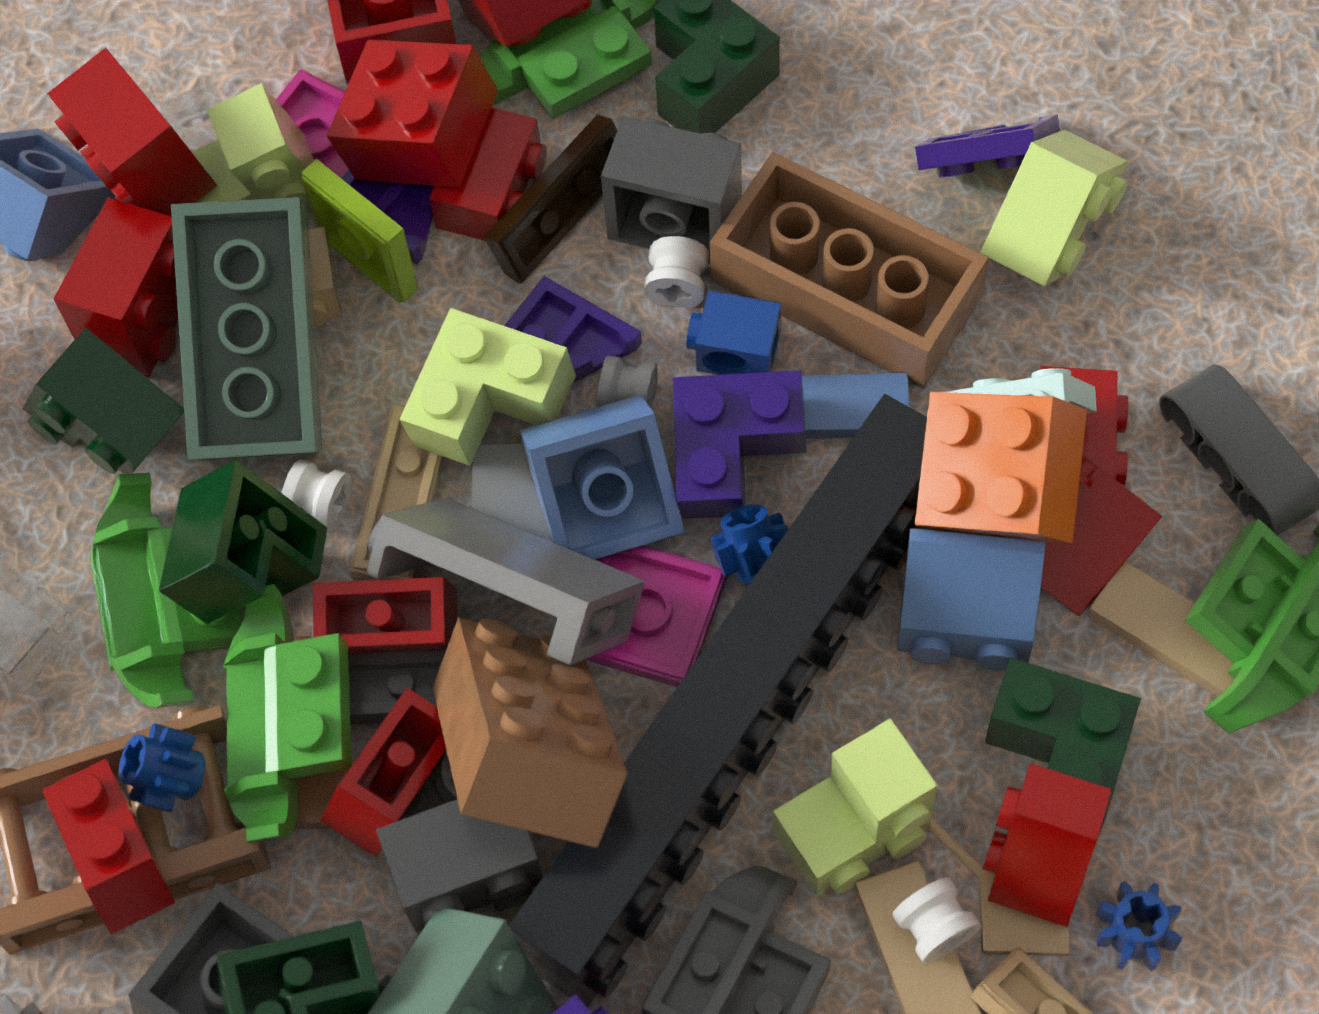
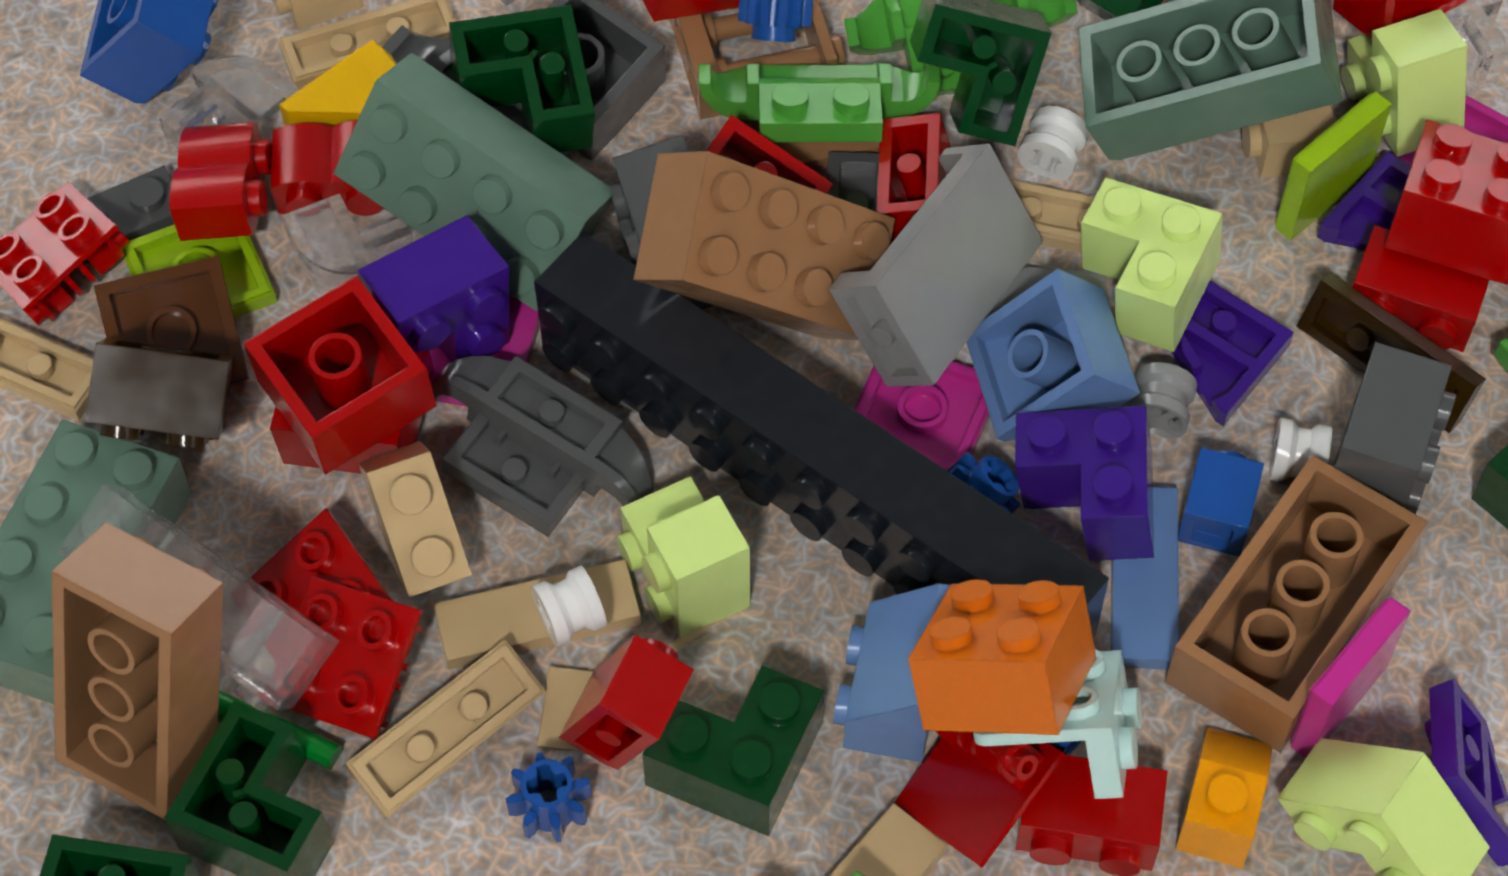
camera: 90 degrees right, 5 degrees down
(931, 203) = (1349, 676): none -> dark pink tile
(1036, 327) = (1225, 798): none -> light orange slope

